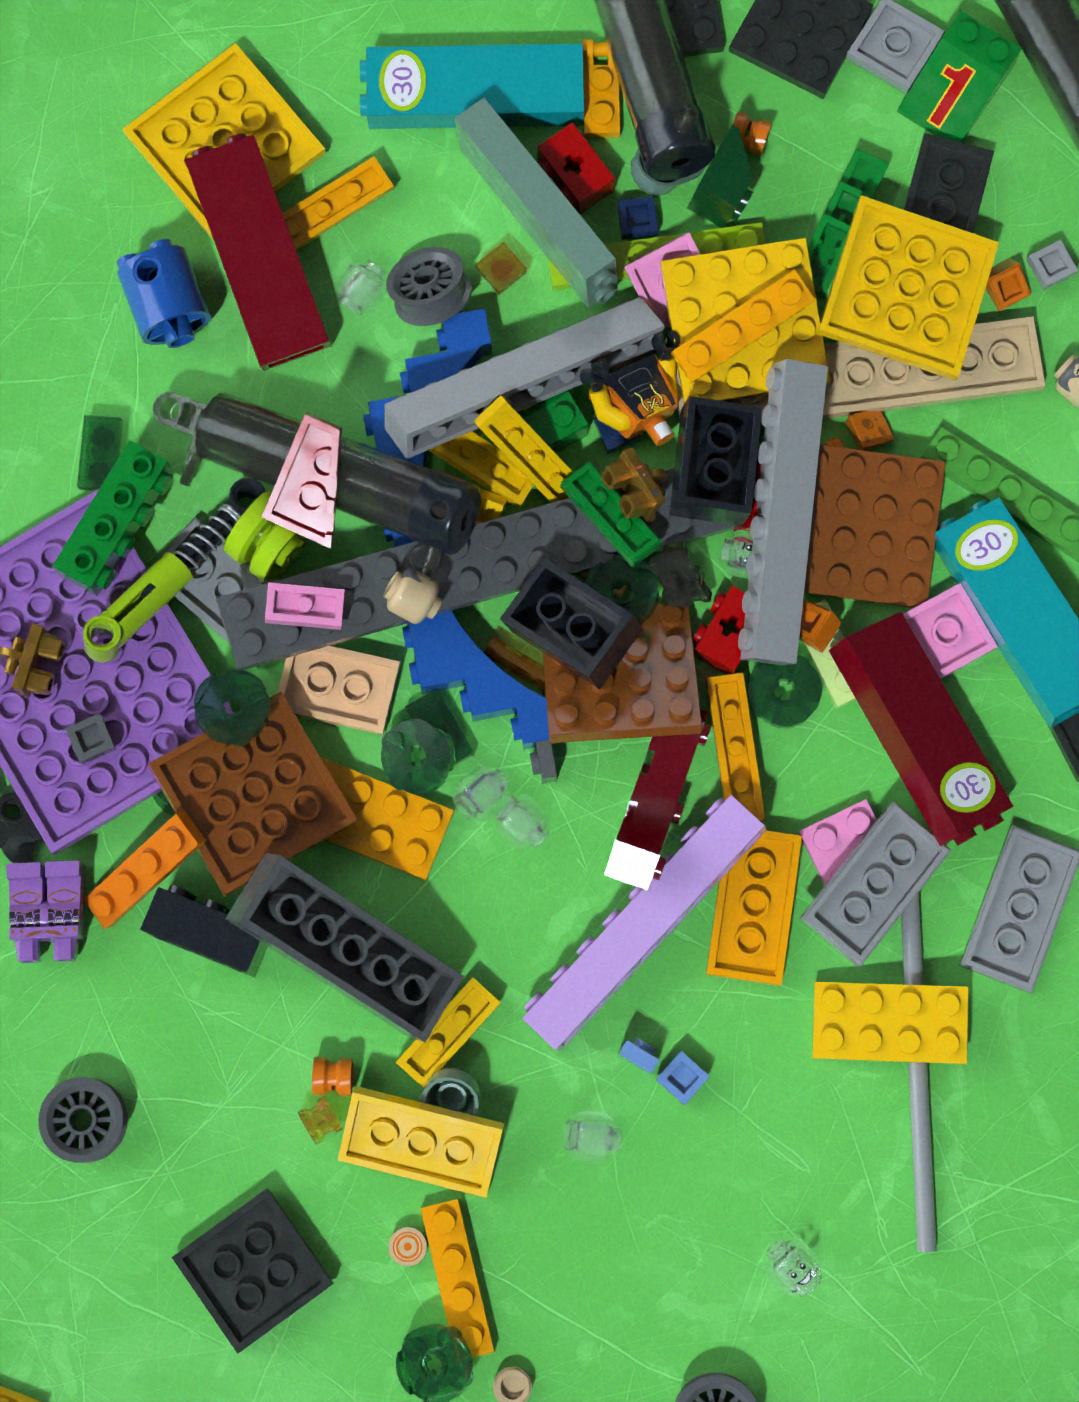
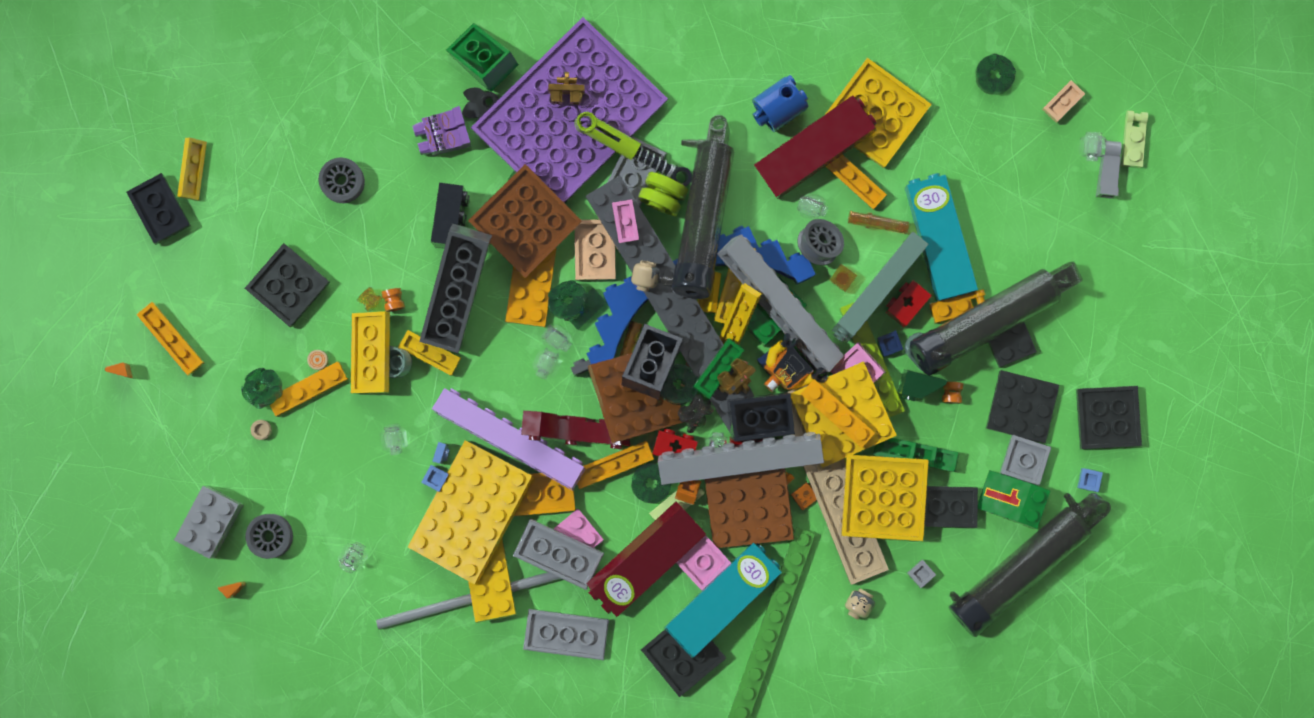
camera: 75 degrees right, 5 degrees up
(90, 738) = (533, 131): dark grey plate -> none
(98, 450) = (687, 94): clear green plate -> none
(114, 518) = (652, 111): green brick -> none
(144, 869) = (472, 176): orange plate -> none
(232, 727) = (570, 208): clear green plate -> none
(308, 482) = (689, 206): wing -> none
(412, 197) = (869, 220): none -> clear orange pin
(762, 1026) = (471, 512): none -> yellow plate
(1007, 284) = (905, 551): orange slope -> none

